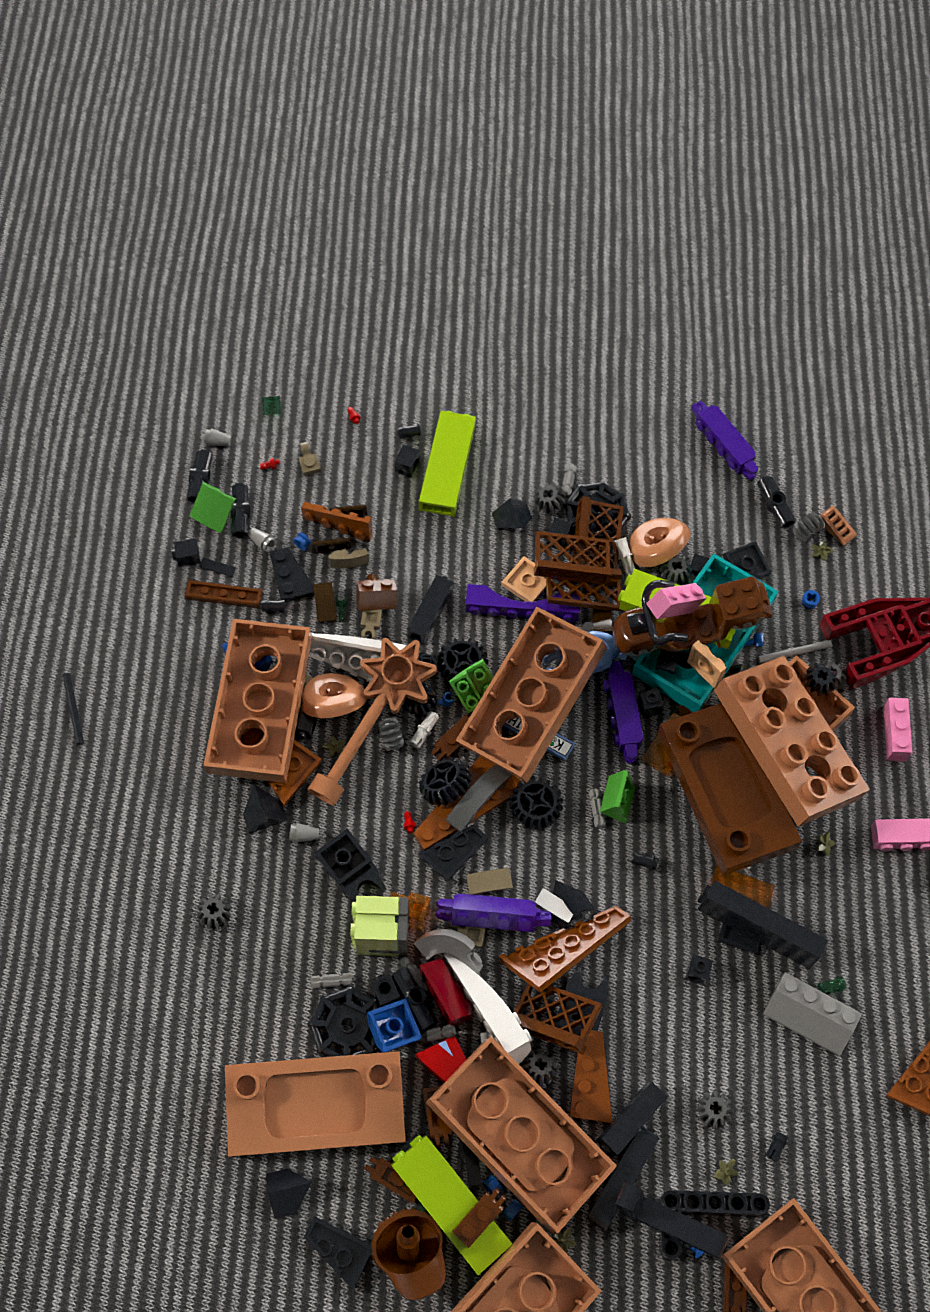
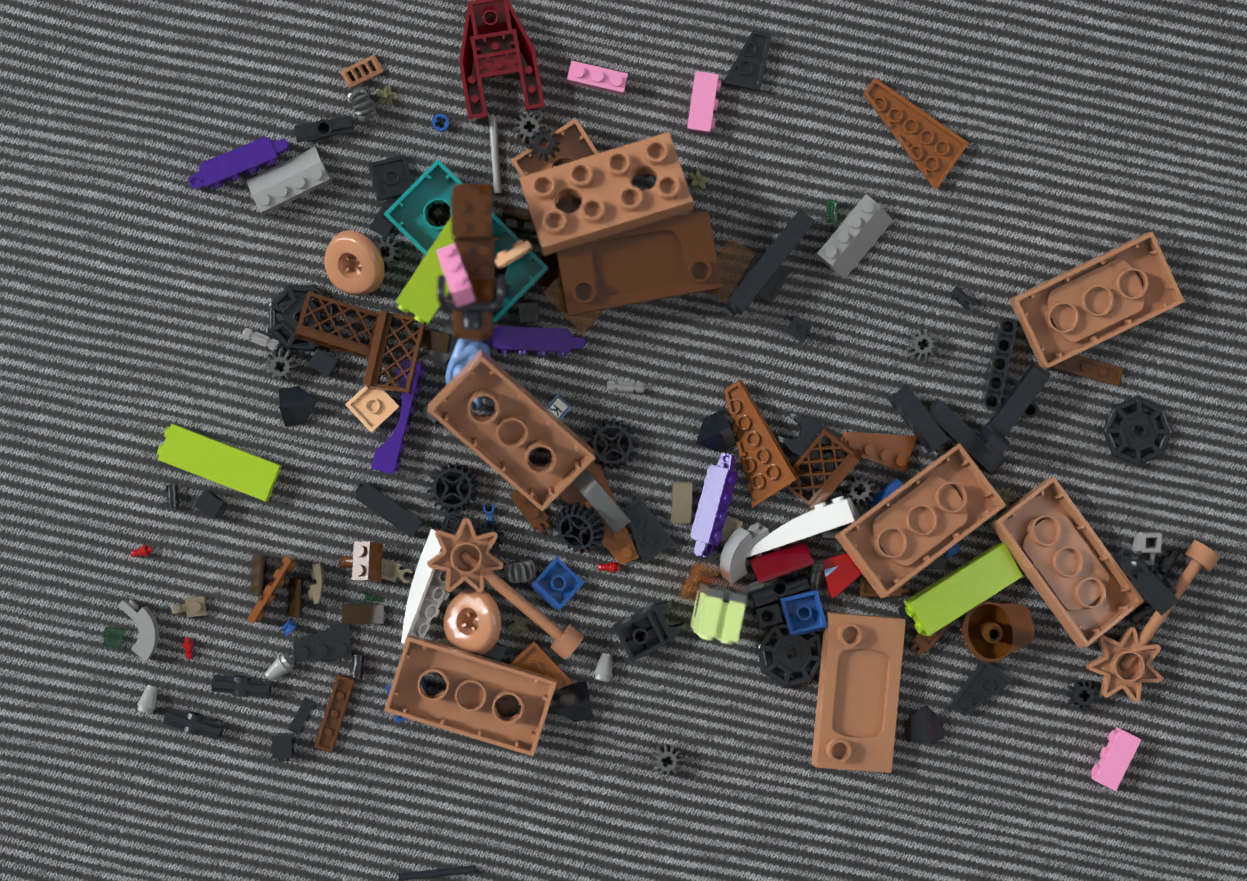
camera: 75 degrees left, 25 degrees up
(212, 507) = (237, 715): bright green slope -> none
(284, 427) = (147, 628): none -> light grey arch
(331, 980) = (748, 659): light grey axle -> none
(383, 771) = (557, 584): none -> blue slope
(424, 730) = (518, 537): white axle -> none
(472, 684) = (483, 482): bright green slope -> none
(479, 1217) = (981, 568): reddish brown hinge -> none
(512, 1210) = (974, 537): blue axle -> none
(554, 905) = (716, 448): white sticker -> none
(572, 570) = (379, 358): reddish brown fence -> none
(618, 796) = (620, 365): bright green slope -> none
(625, 555) = (362, 301): white axle -> none
(645, 861) = (686, 353): black pin -> none
(718, 482) = (288, 181): none -> light grey slope
(726, 1171) = (974, 347): olive plant -> none

